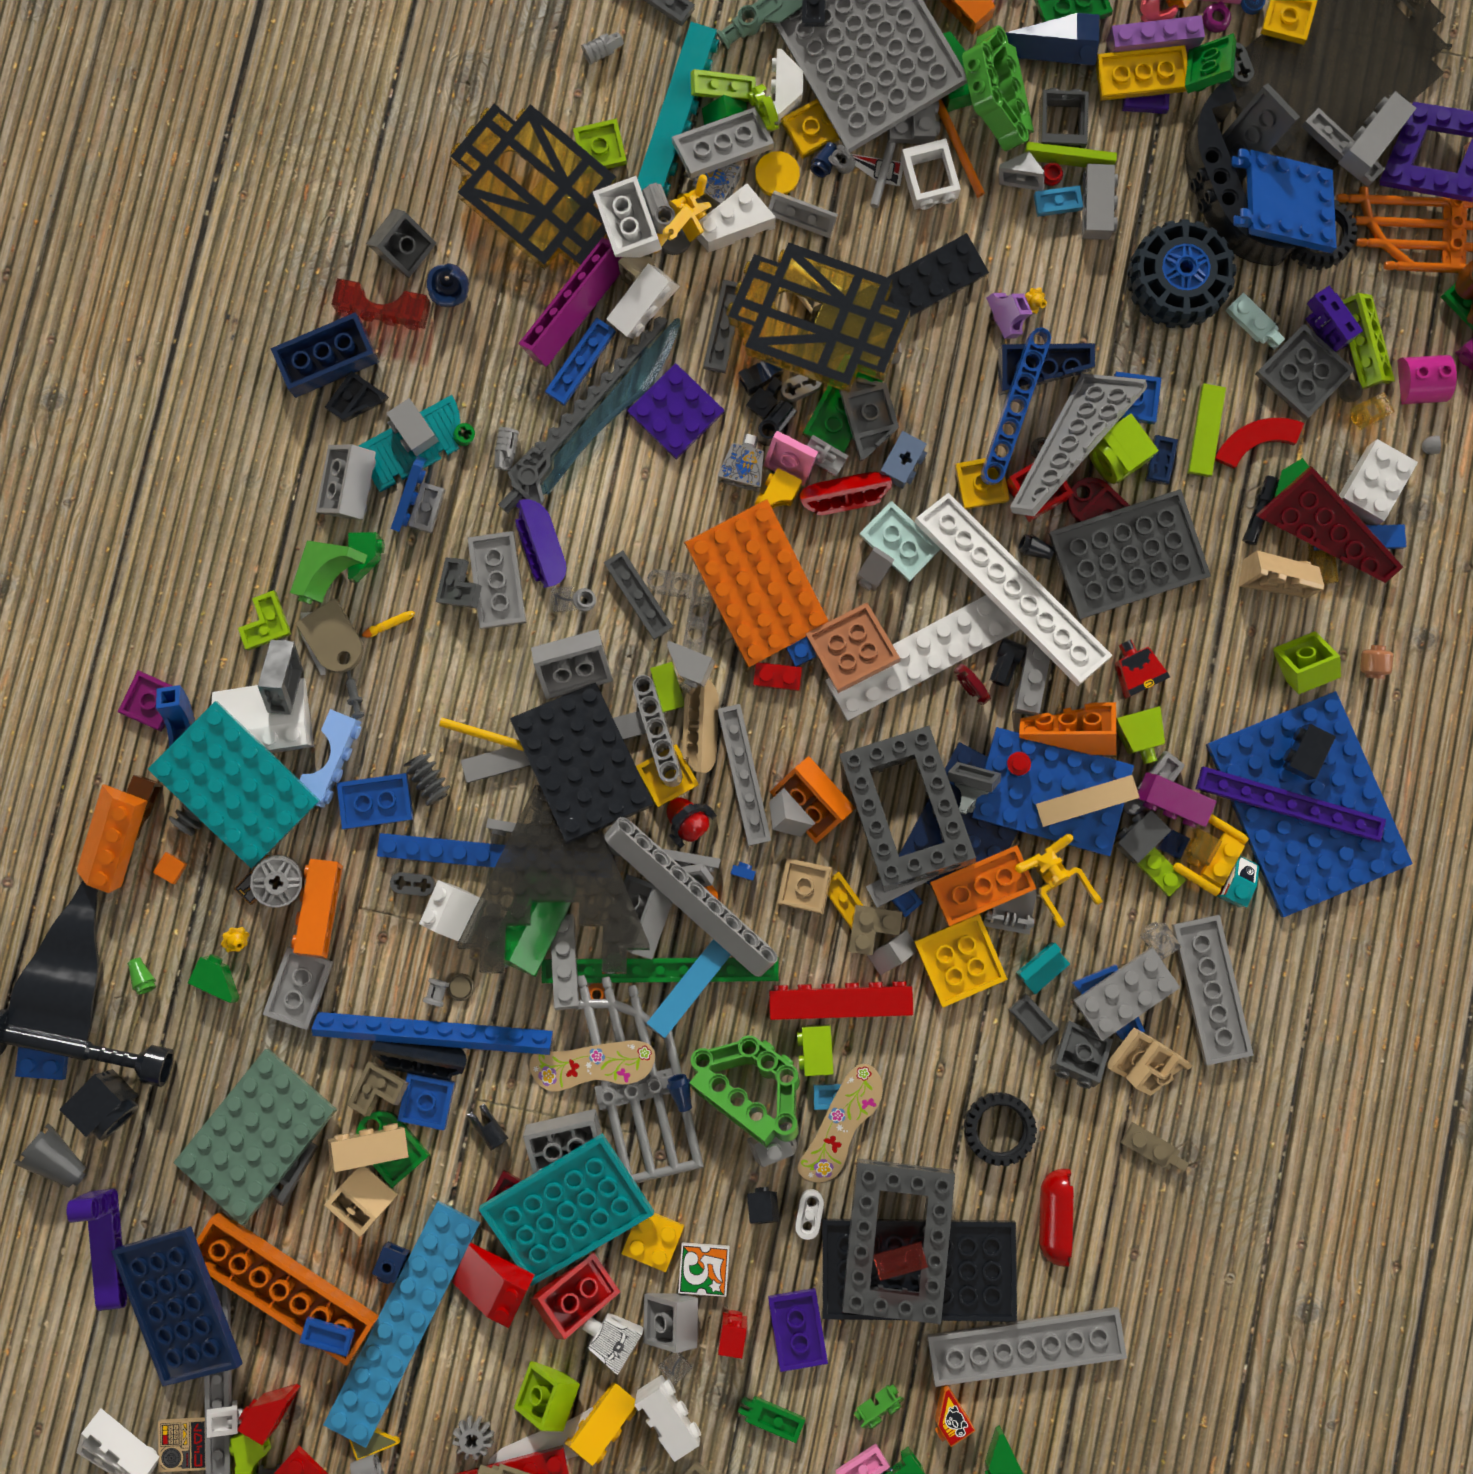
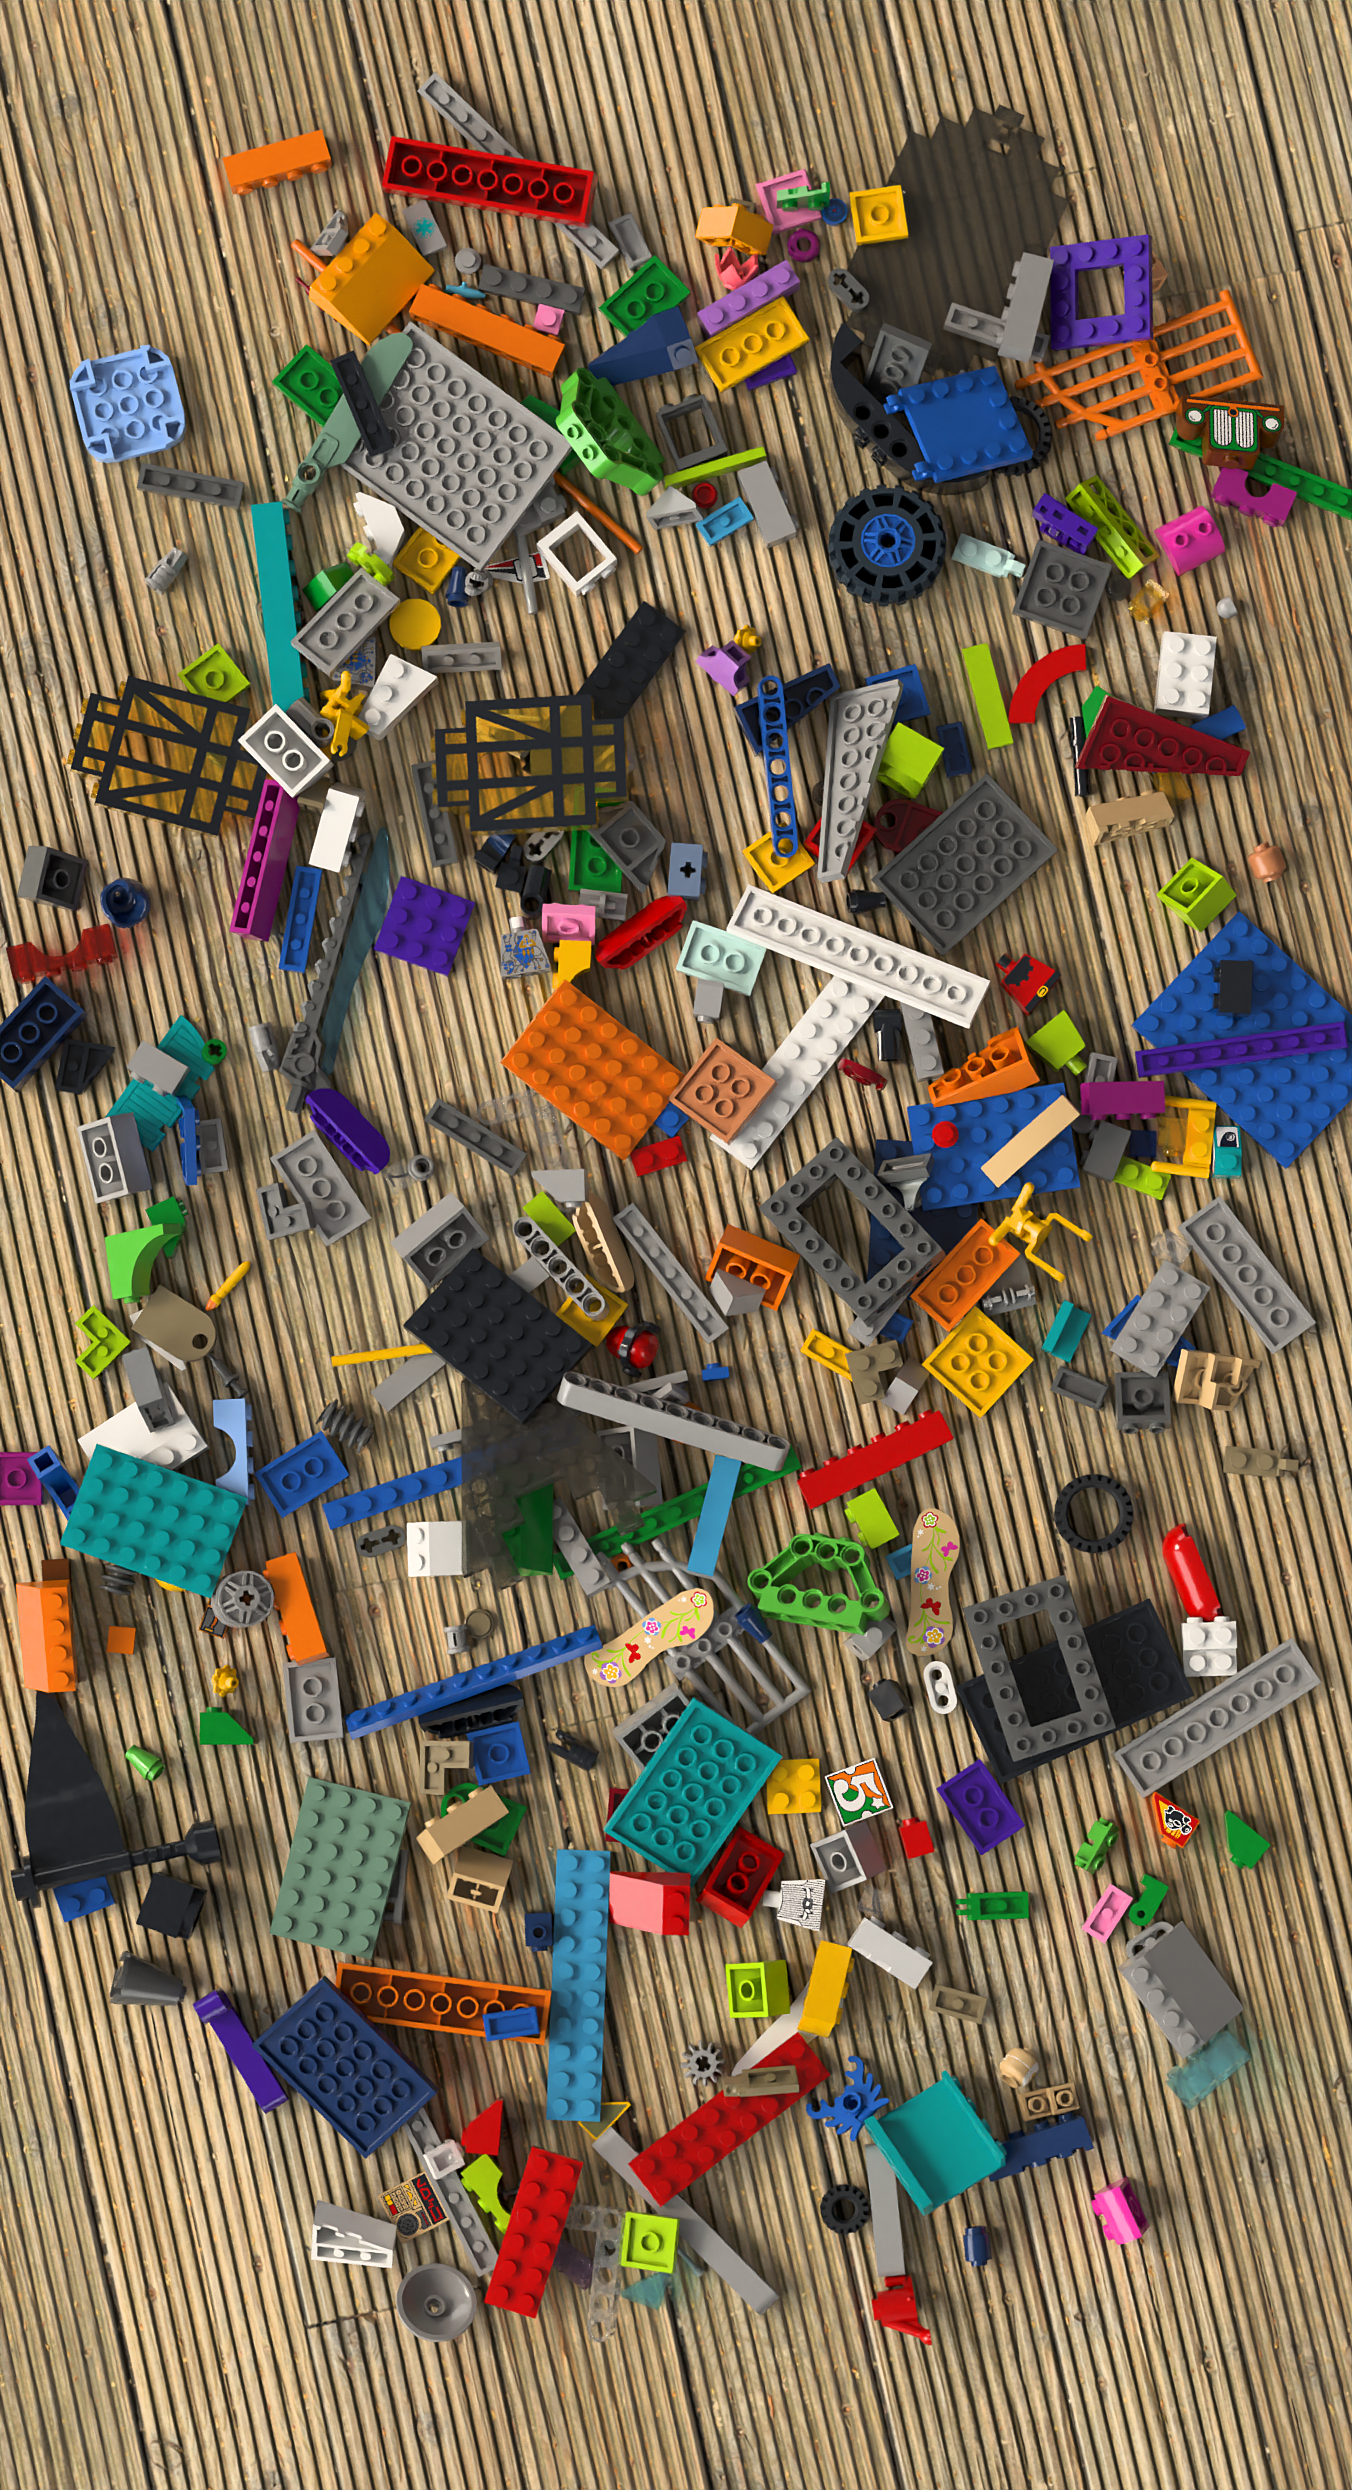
camera: 25 degrees left, 0 degrees up
(716, 84) = (315, 558): lime plate -> none
(805, 885) = (785, 1358): tan tile -> none
(900, 1261) = (1046, 1682): clear red plate -> none
(1046, 1284) = (1209, 1647): none -> white plate
(1210, 63) = (818, 309): green plate -> none

